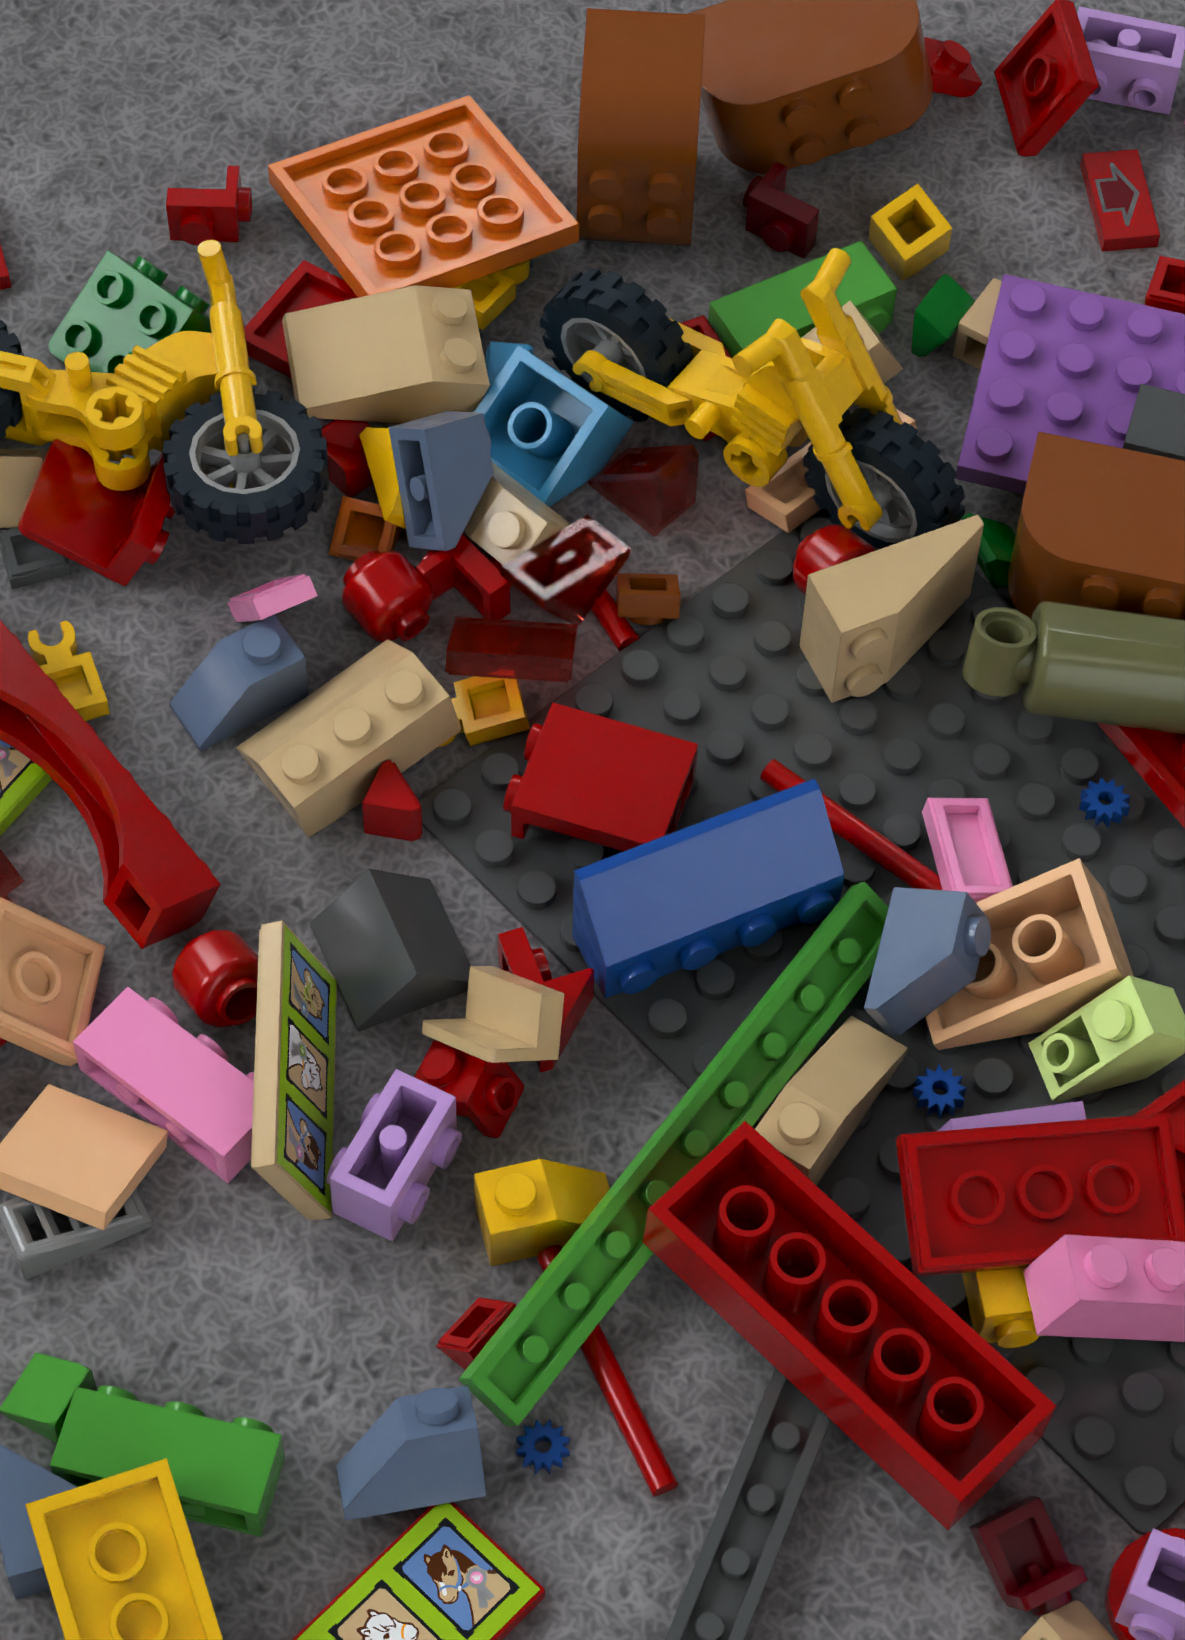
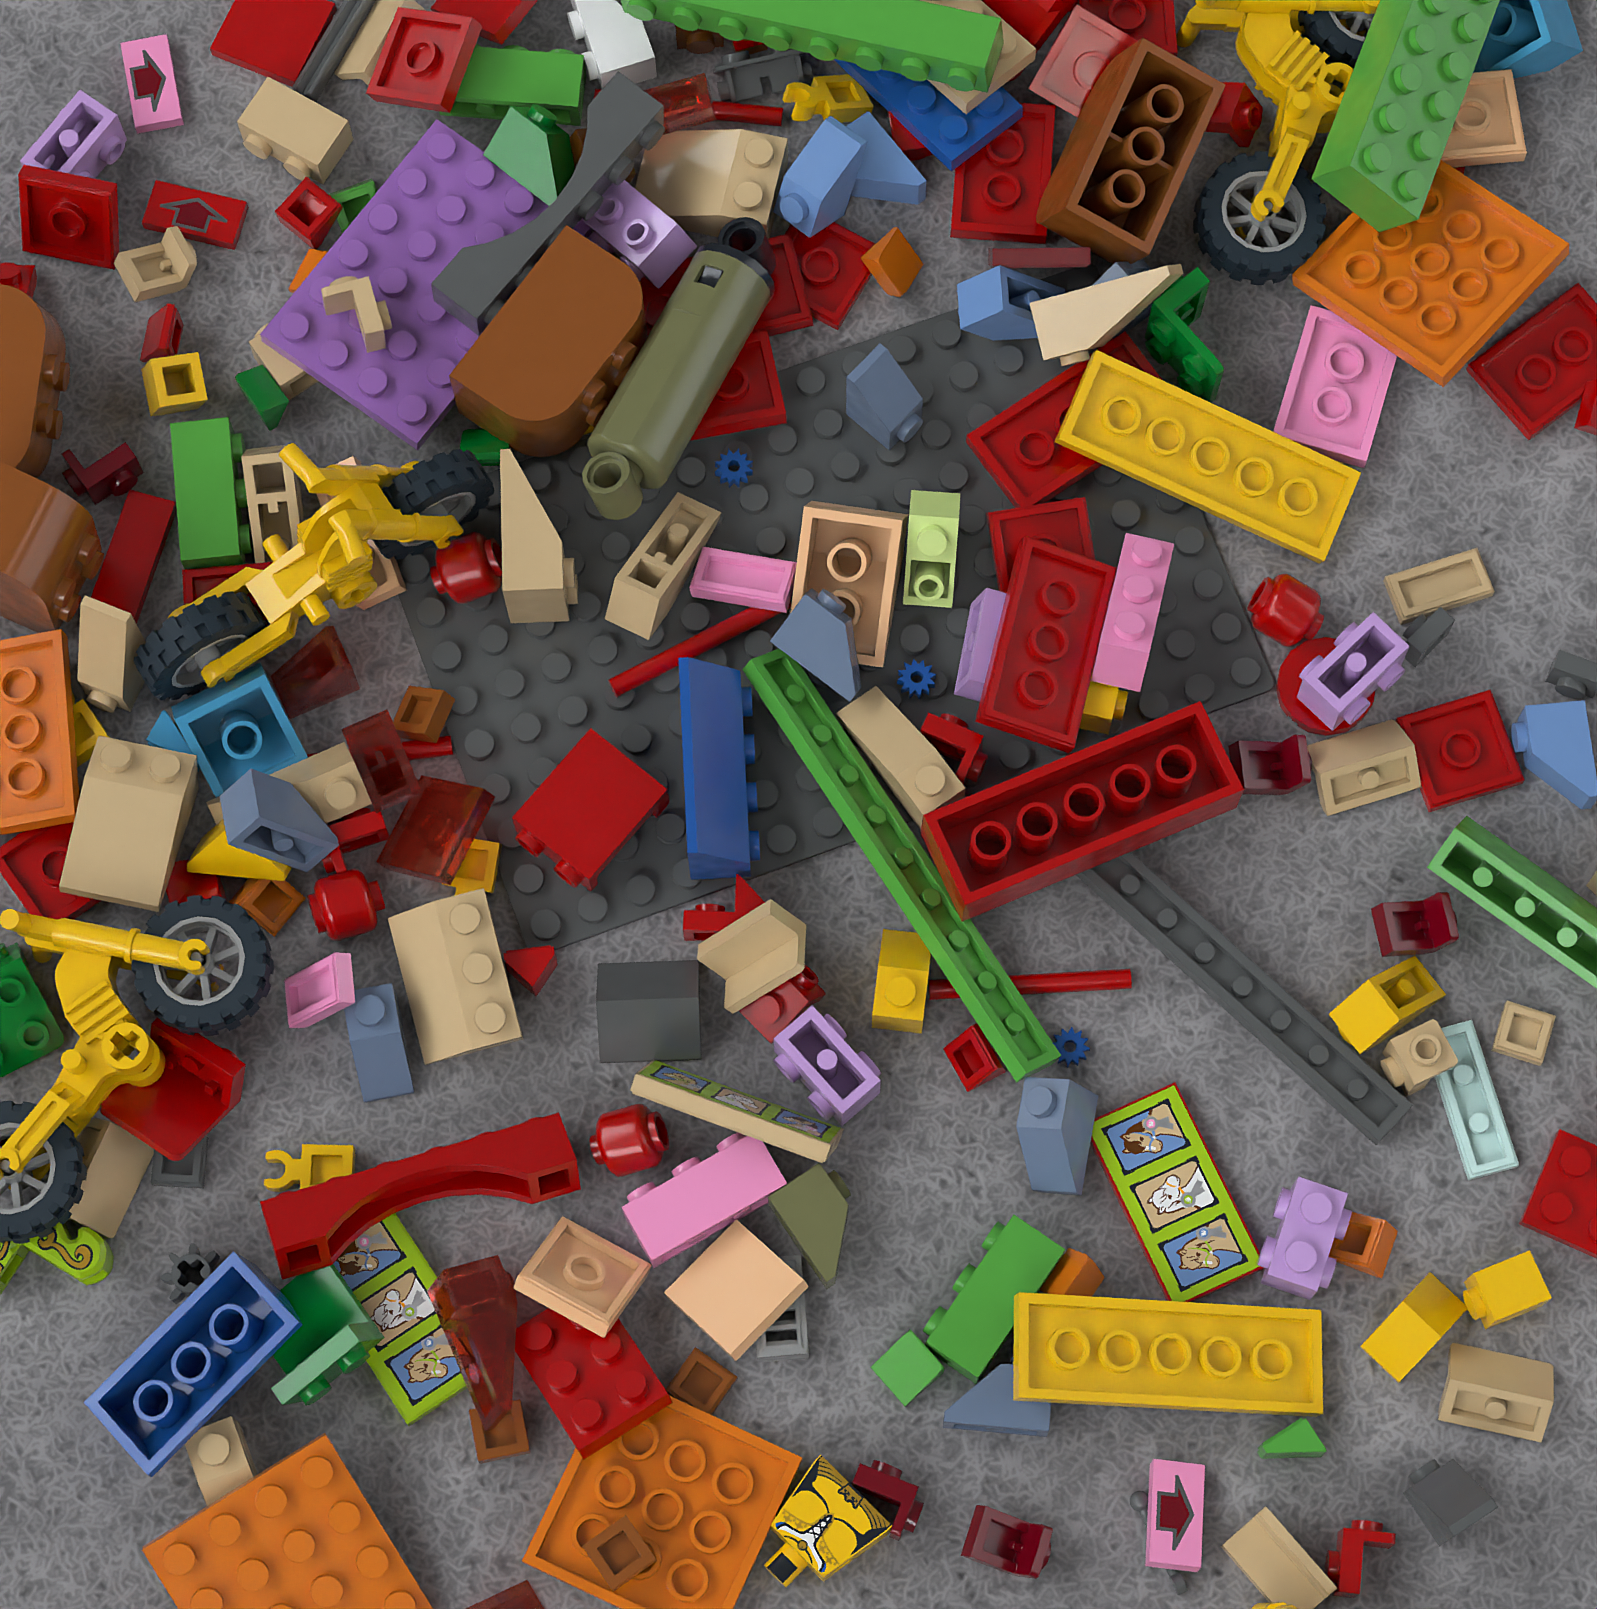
camera: 65 degrees left, 15 degrees up
(195, 1217) = (815, 1218): none -> olive slope
(228, 1551) = (1074, 1275): none -> orange slope
(566, 251) = (107, 654): none -> tan slope
(695, 276) = (134, 552): none -> red tile
(865, 1178) = (955, 740): none -> red bracket
(928, 754) = (660, 566): none -> tan slope
(970, 216) = (162, 334): none -> red slope
(1037, 182) = (158, 267): none -> tan bracket
(1080, 343) = (357, 294): none -> tan bracket

